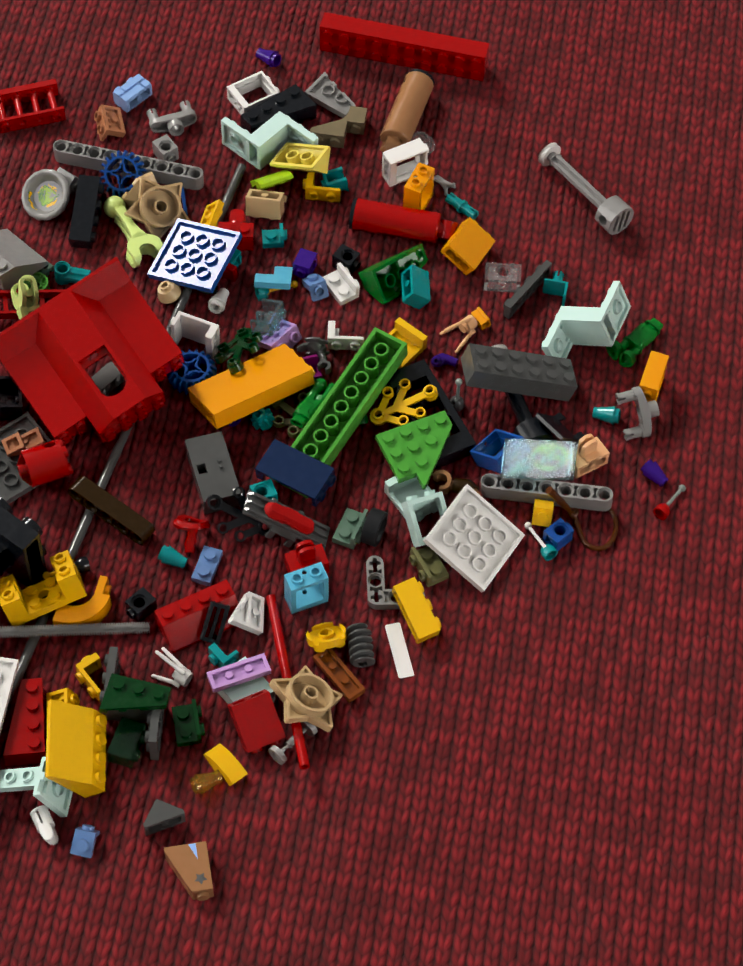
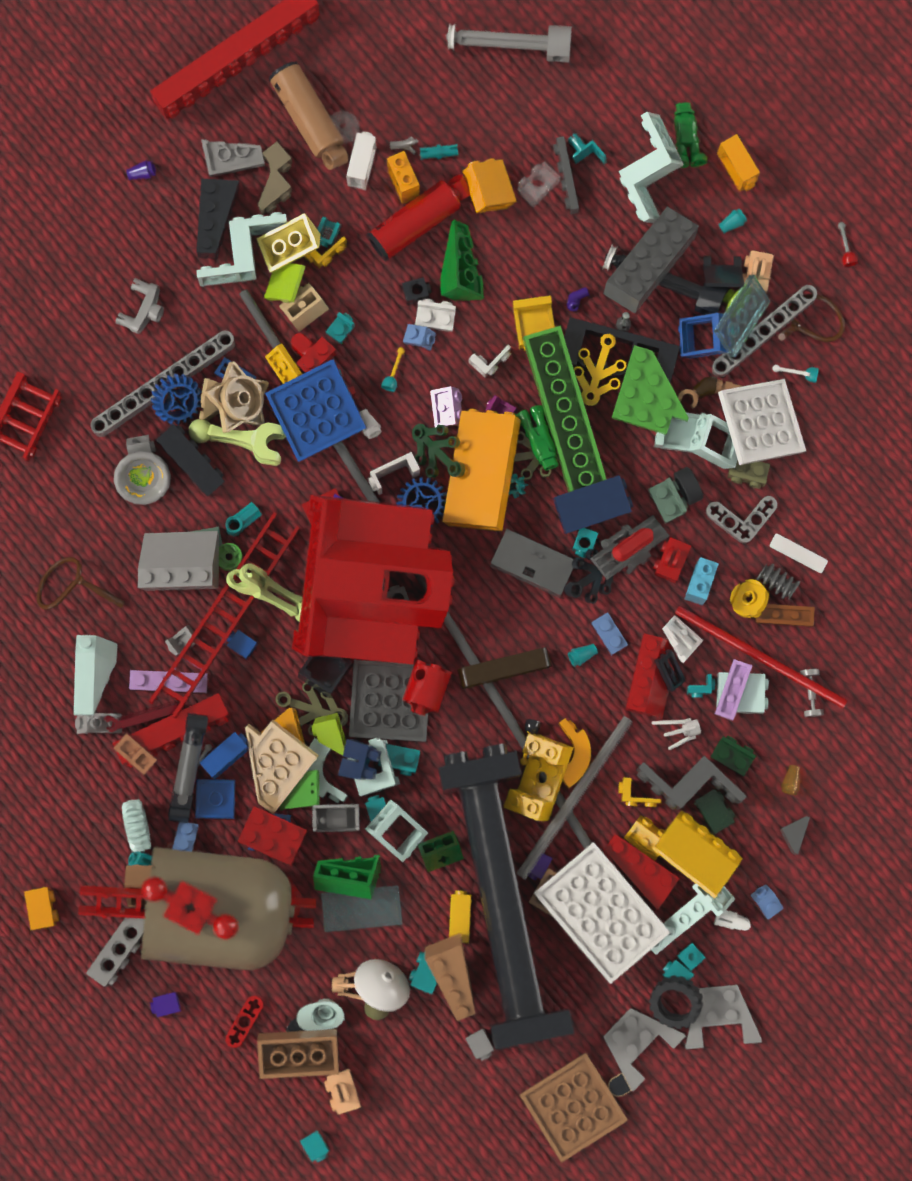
camera: 50 degrees left, 25 degrees up
(17, 442) = (384, 686): nougat slope -> none
(109, 122) = (101, 362): nougat bracket -> none
(131, 693) = (695, 783): dark green wing -> none
(132, 93) = (84, 317): light blue brick -> none
(144, 598) = (609, 703): black brick -> none
(165, 149) = (167, 335): light grey brick -> none
(168, 292) = (328, 458): tan cone -> none
(192, 526) = (574, 621): red piece -> none
(192, 868) = (853, 844): medium nougat slope -> none
(224, 761) = (790, 755): yellow slope -> none
(256, 721) = (780, 708): red brick -> none
(257, 80) = (171, 237): white window -> none
(269, 319) = (425, 402): clear light blue window -> none
(279, 280) = (392, 363): medium azure tile -> none
(304, 263) = (391, 327): dark purple brick -> none
(306, 699) = (792, 657): tan plate -> none
(317, 346) = (485, 387): dark grey piece -> none
(415, 287) = (492, 261): teal brick -> none
(416, 610) = (784, 515): yellow brick -> none
(465, 325) = (559, 252): light nougat plant -> none
(482, 319) = (562, 236): light orange piece -> none
(542, 512) = (780, 351): yellow brick -> none
(558, 541) = (801, 361): blue brick -> none
(645, 412) = (761, 194): light grey connector -> none
(654, 473) = (812, 235): dark purple cone -> none

